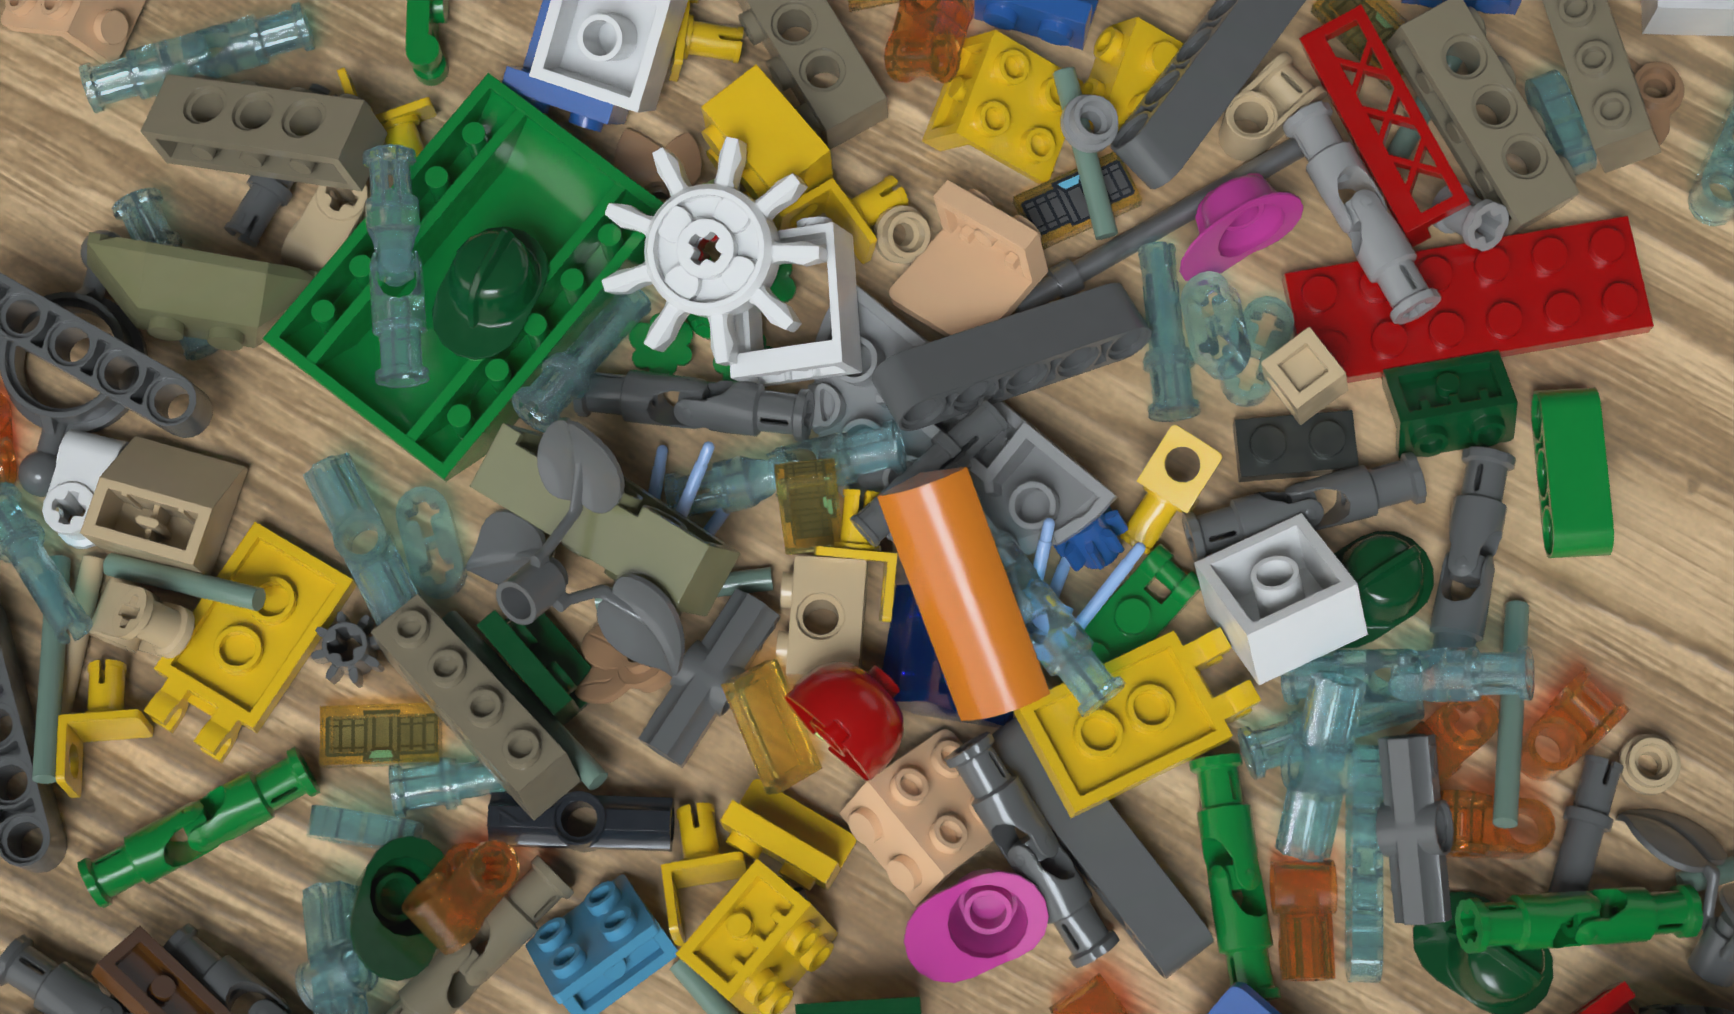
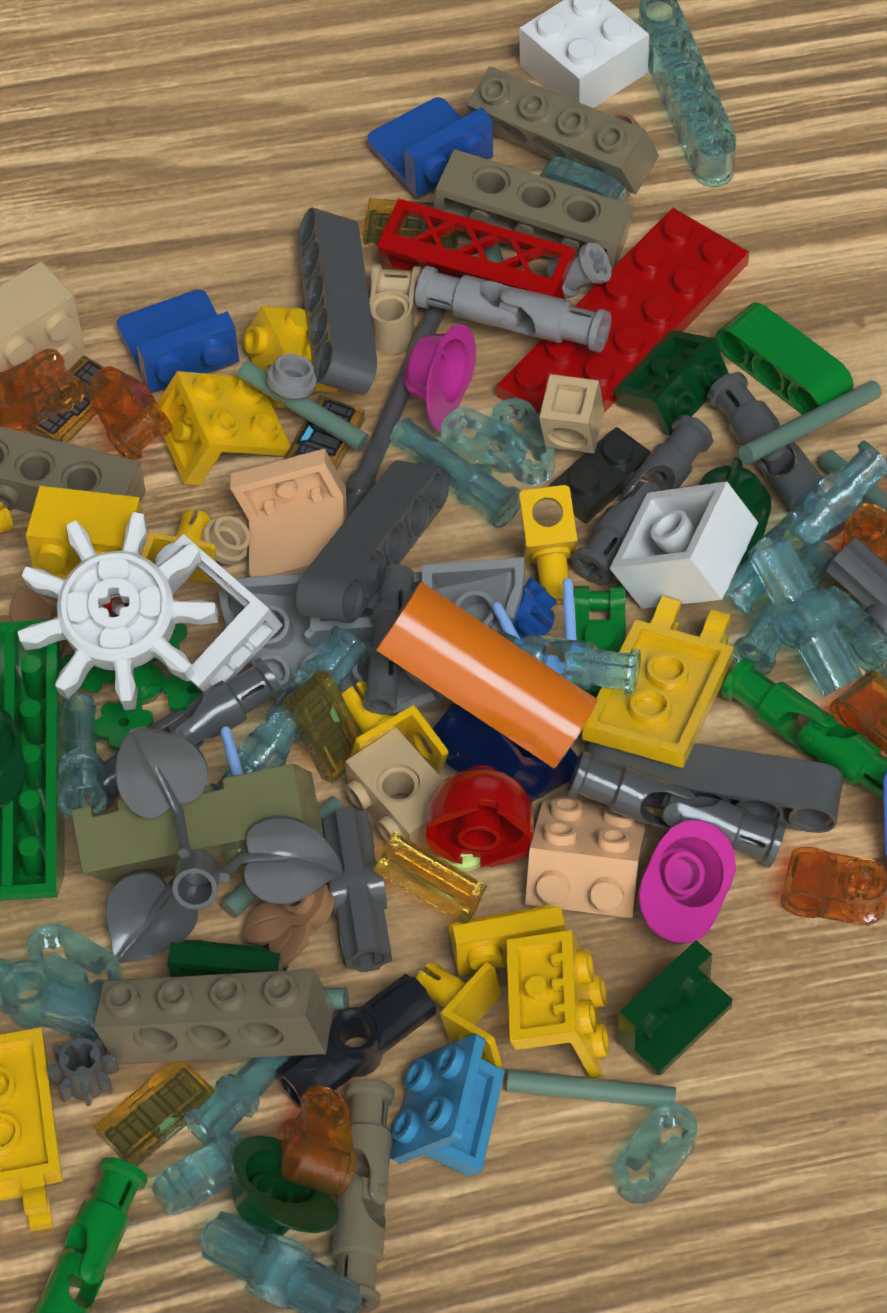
camera: 45 degrees left, 20 degrees down
(1524, 565) = (809, 422): none -> sand green bar

